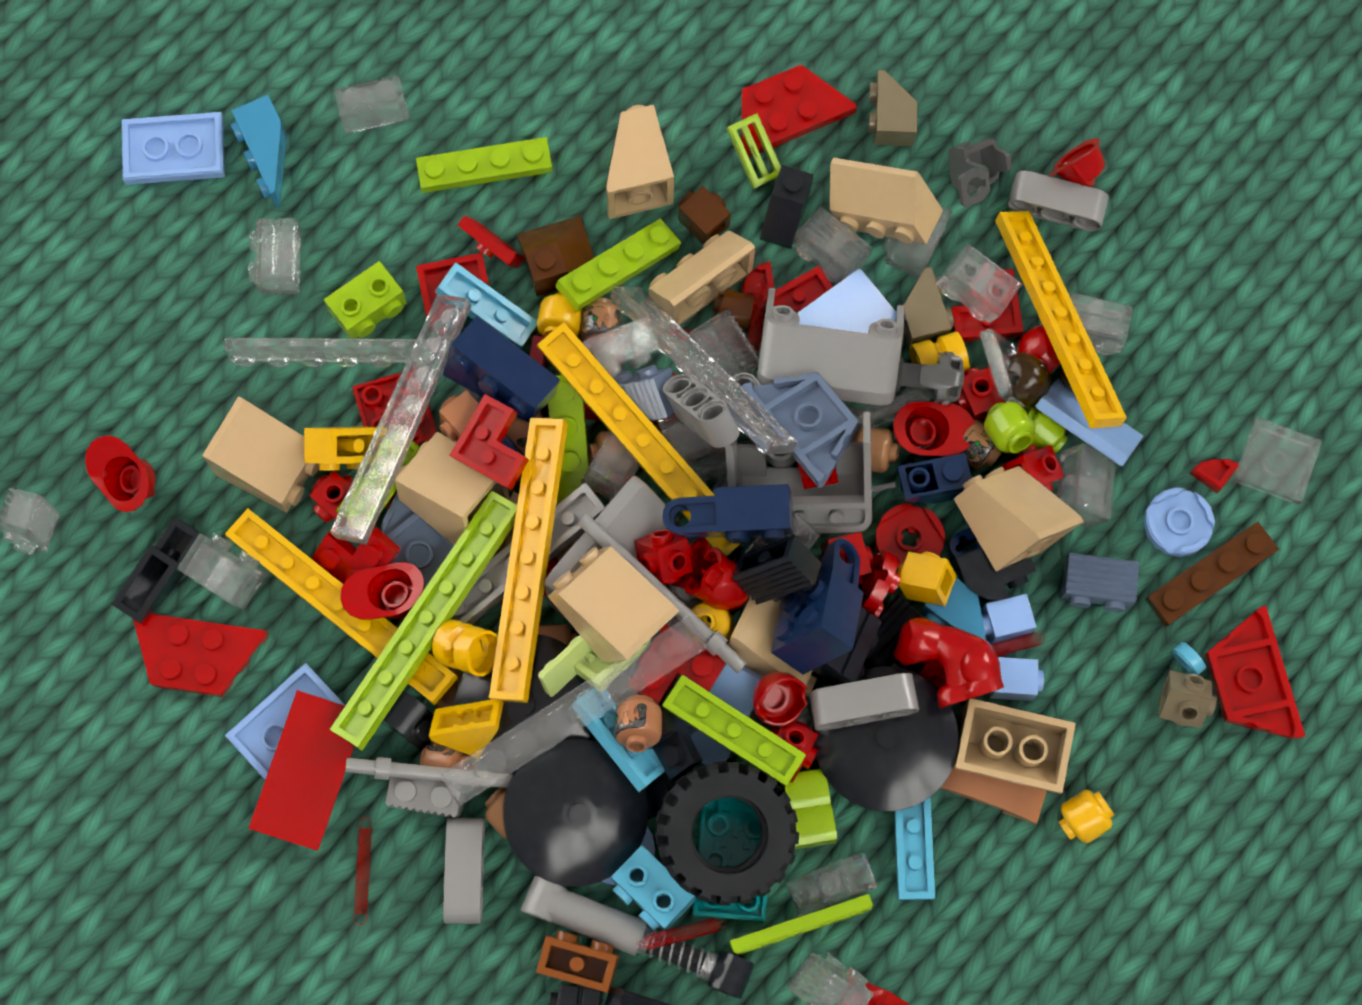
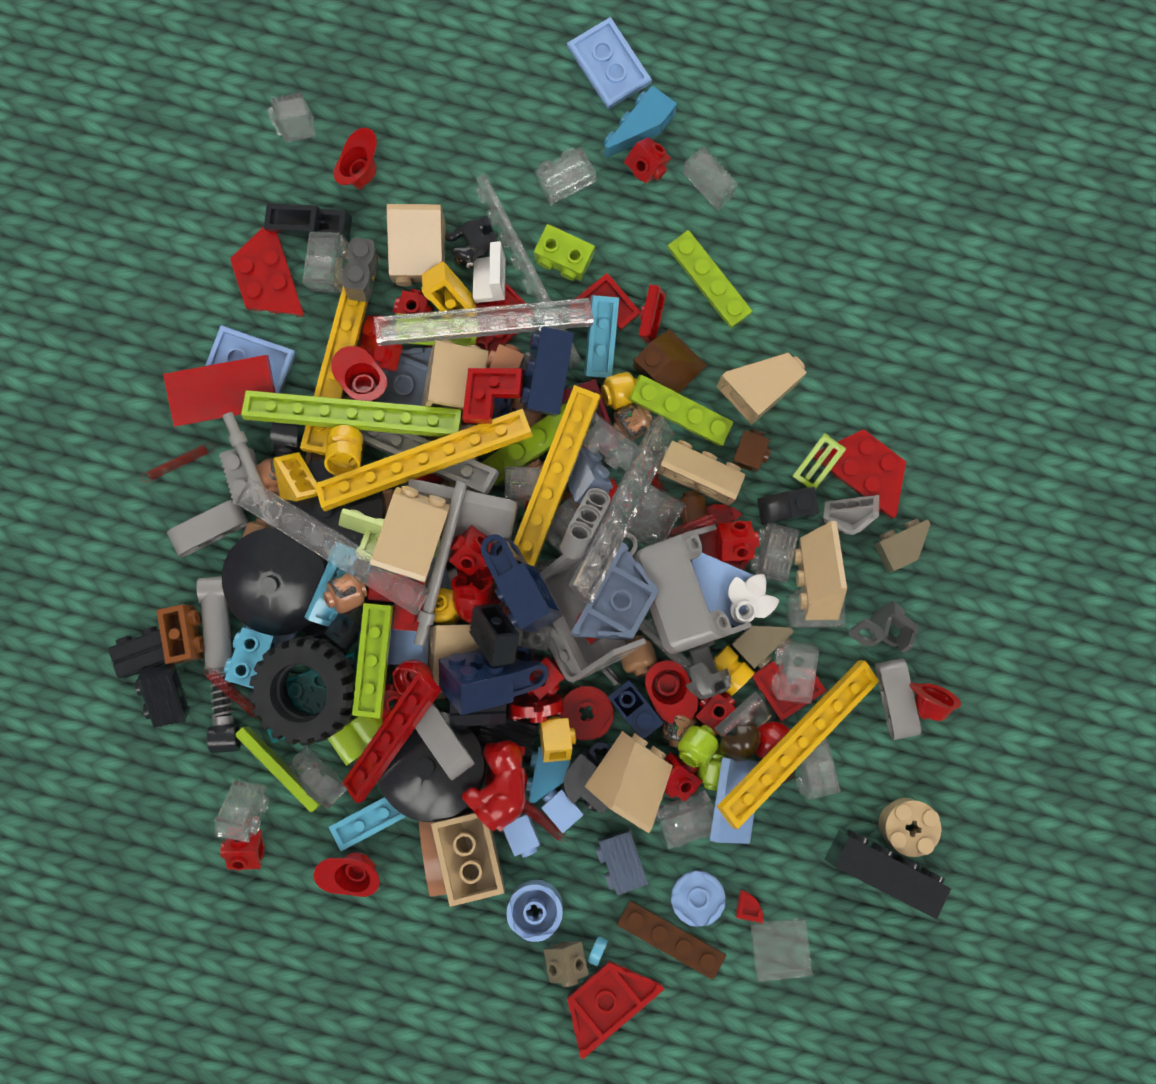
camera: 65 degrees right, 10 degrees up
(258, 529) = (360, 269): none -> dark grey brick
(296, 390) = (477, 241): none -> black animal
(314, 158) = (648, 160): none -> red brick
(346, 393) = (490, 275): none -> white panel
(799, 273) = (737, 541): none -> red brick
(832, 139) = (852, 513): none -> light grey slope
(832, 758) = (391, 735): none -> red tile
(868, 291) = (752, 595): none -> white plate
(969, 901) = (348, 875): none -> red piece
(1086, 816) = (449, 929): yellow head -> none
(1127, 697) = (523, 921): none -> light blue brick
(1222, 255) = (921, 838): none -> tan brick
(1244, 301) = (895, 877): none -> black brick

